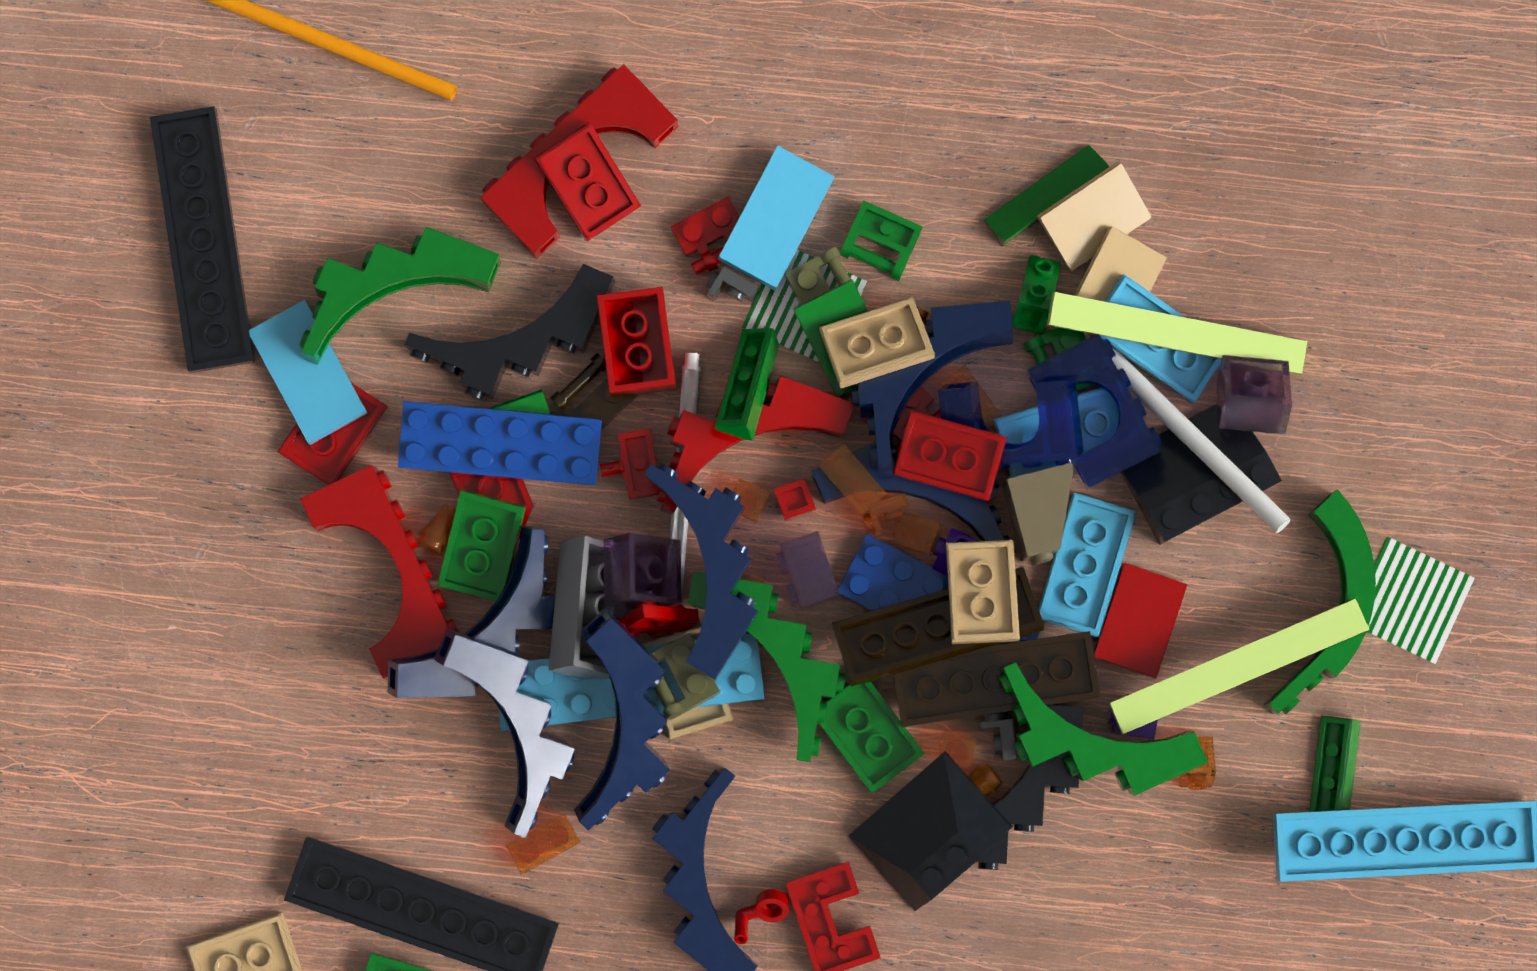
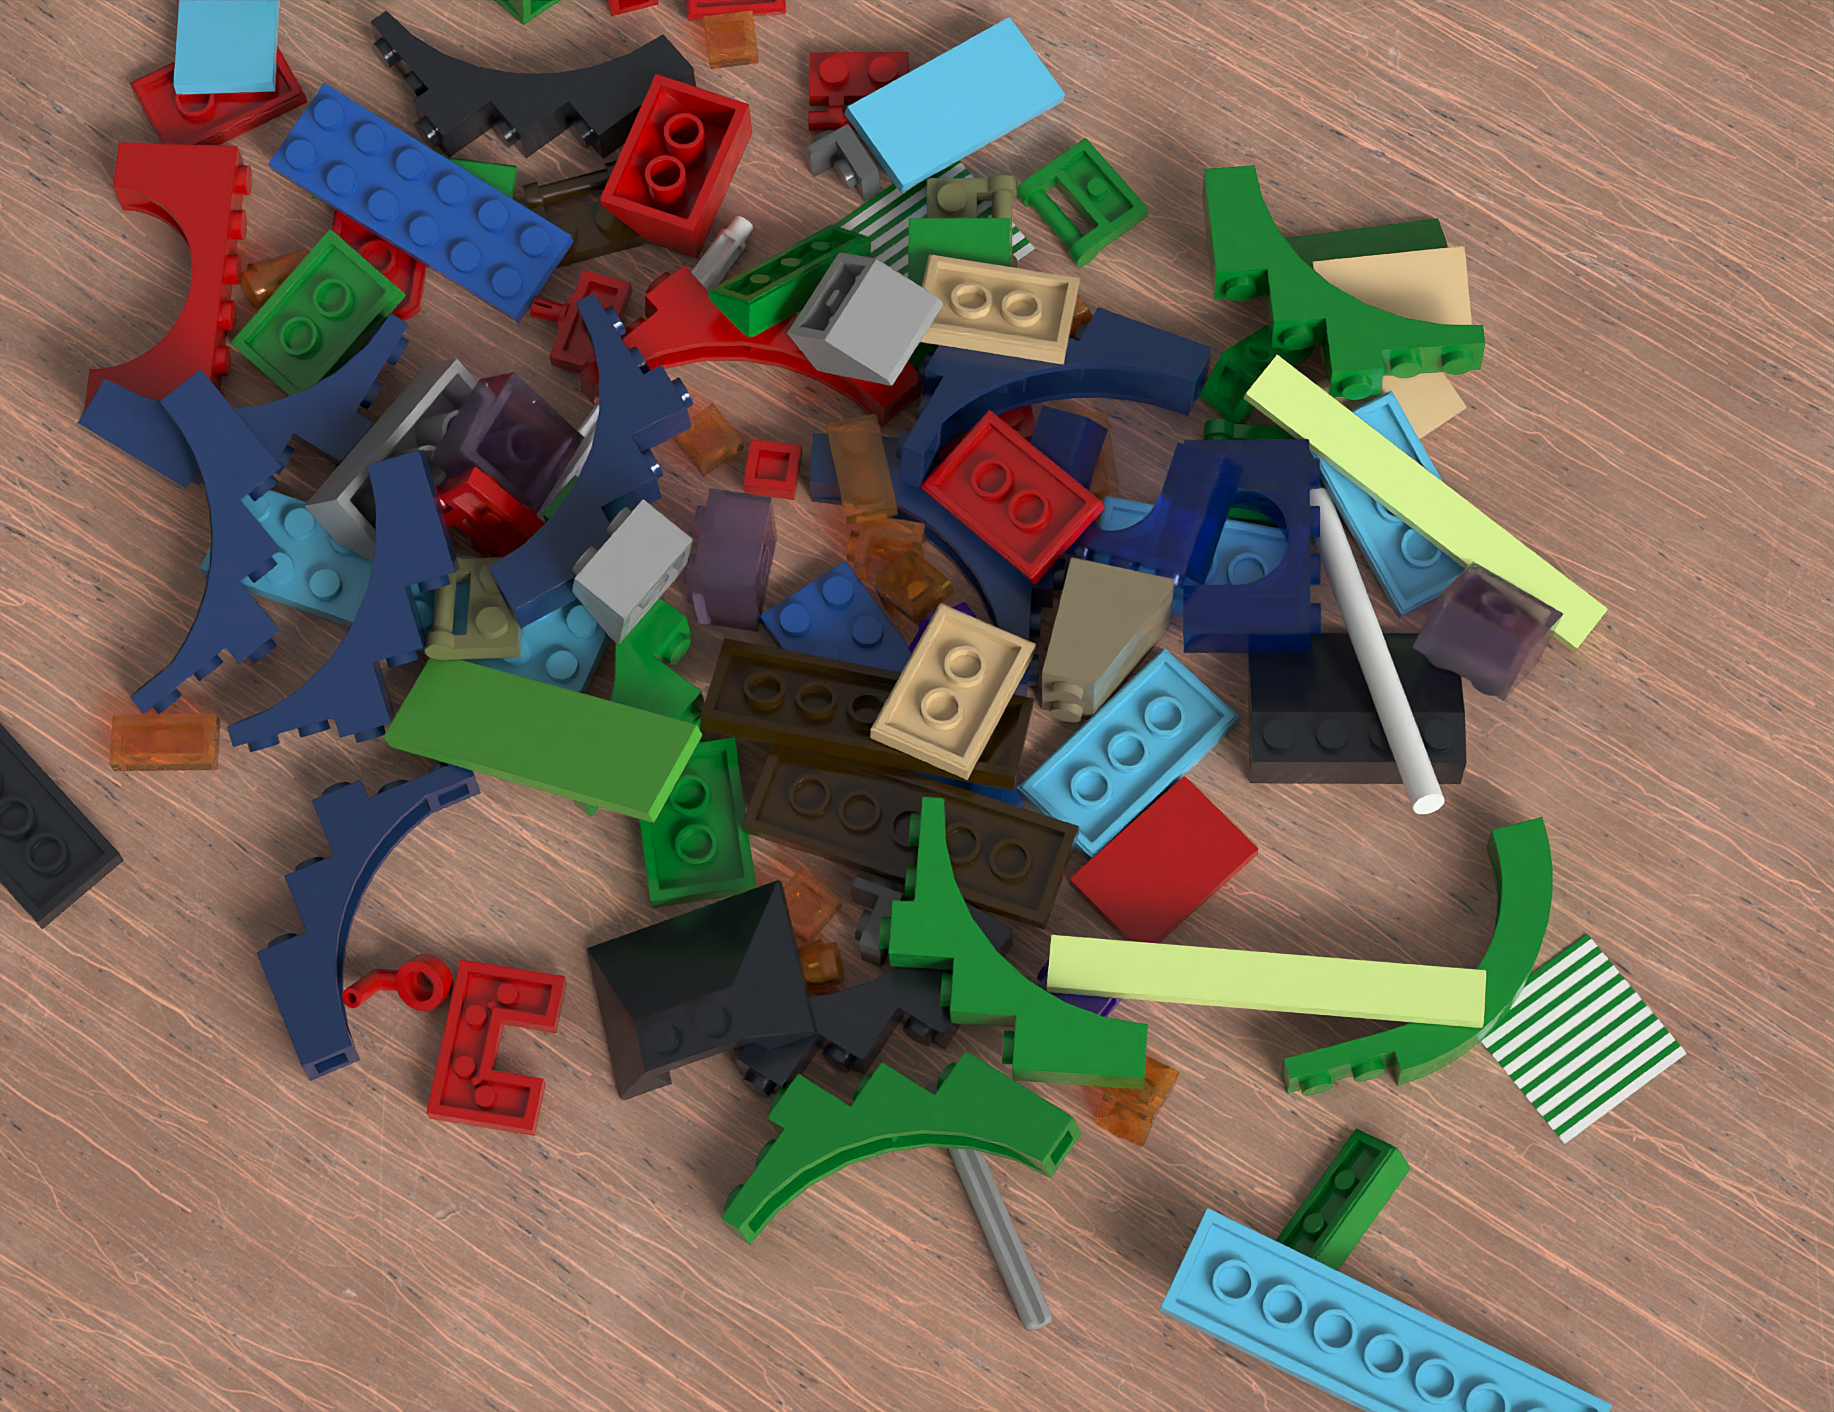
camera: 30 degrees right, 15 degrees down
(619, 241) = (731, 39): none -> clear orange plate
(767, 738) = (544, 737): none -> bright green tile
(772, 623) = (631, 568): none -> light grey slope
(813, 395) = (863, 320): none -> light grey slope
(1039, 875) = (891, 1113): none -> green arch
(1050, 252) = (1306, 310): none -> green arch
(1147, 864) = (1001, 1235): none -> light grey axle

